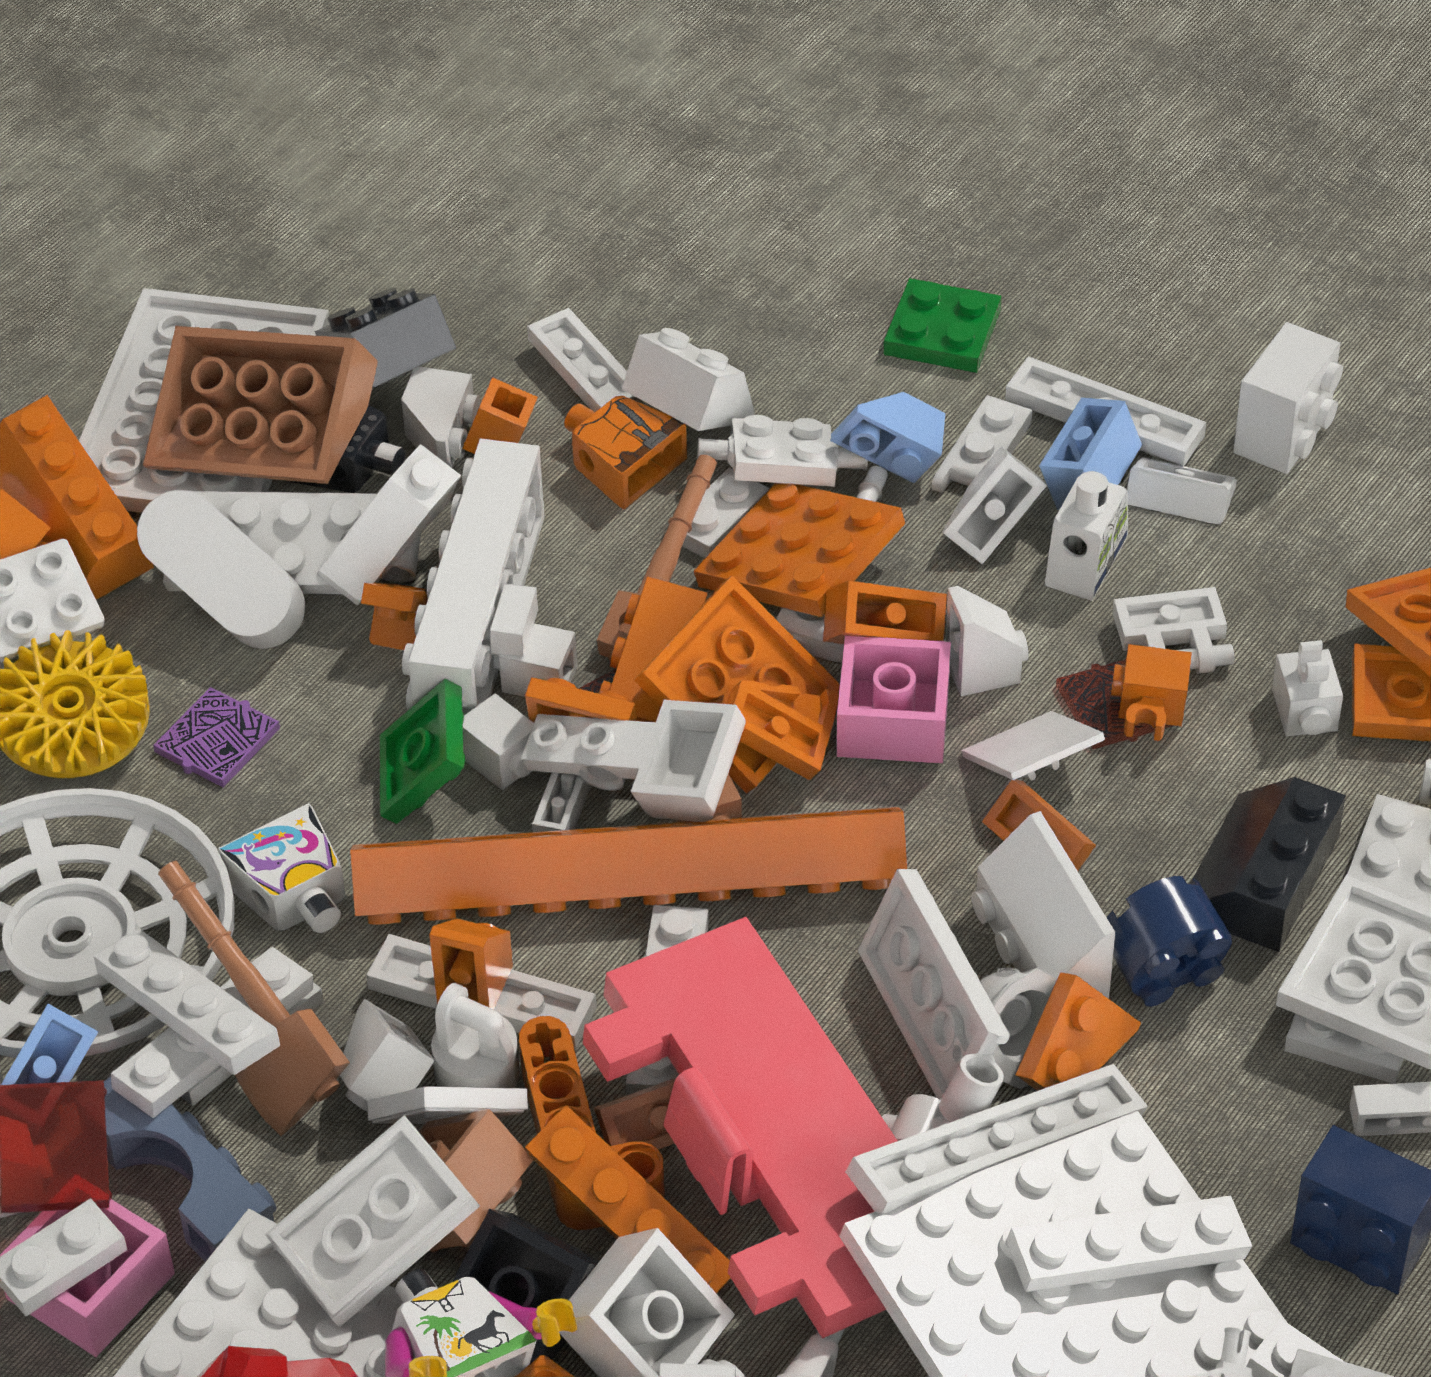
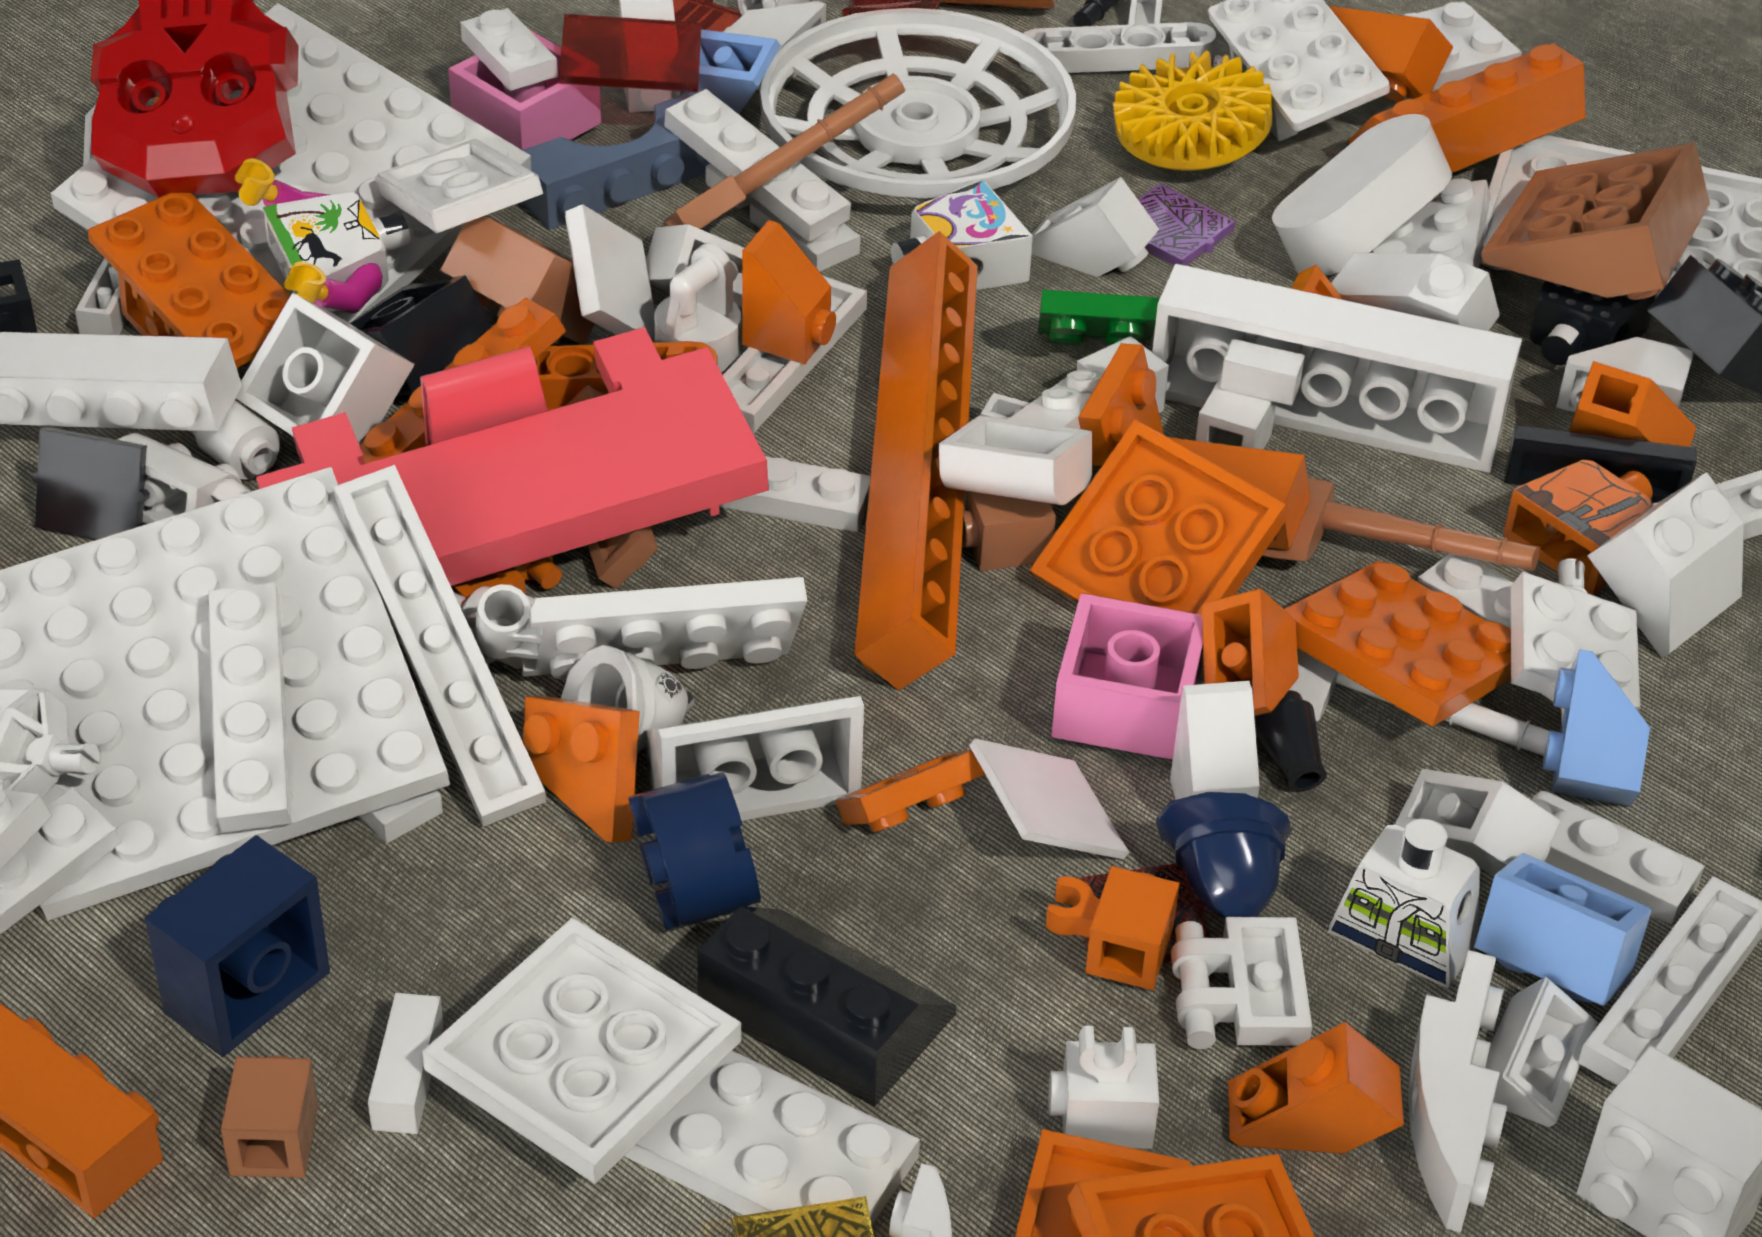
camera: 95 degrees right, 5 degrees down
(187, 1001) = (757, 125): white plate -> none
(263, 776) = (1097, 232): none -> white slope
(549, 424) = (1542, 451): none -> black plate
(786, 724) = (1090, 555): orange wing -> none
(1066, 632) = (1227, 848): none -> dark blue piece
(1252, 523) = (1455, 1093): none -> white slope
(1274, 588) = (1318, 1096): none -> orange slope

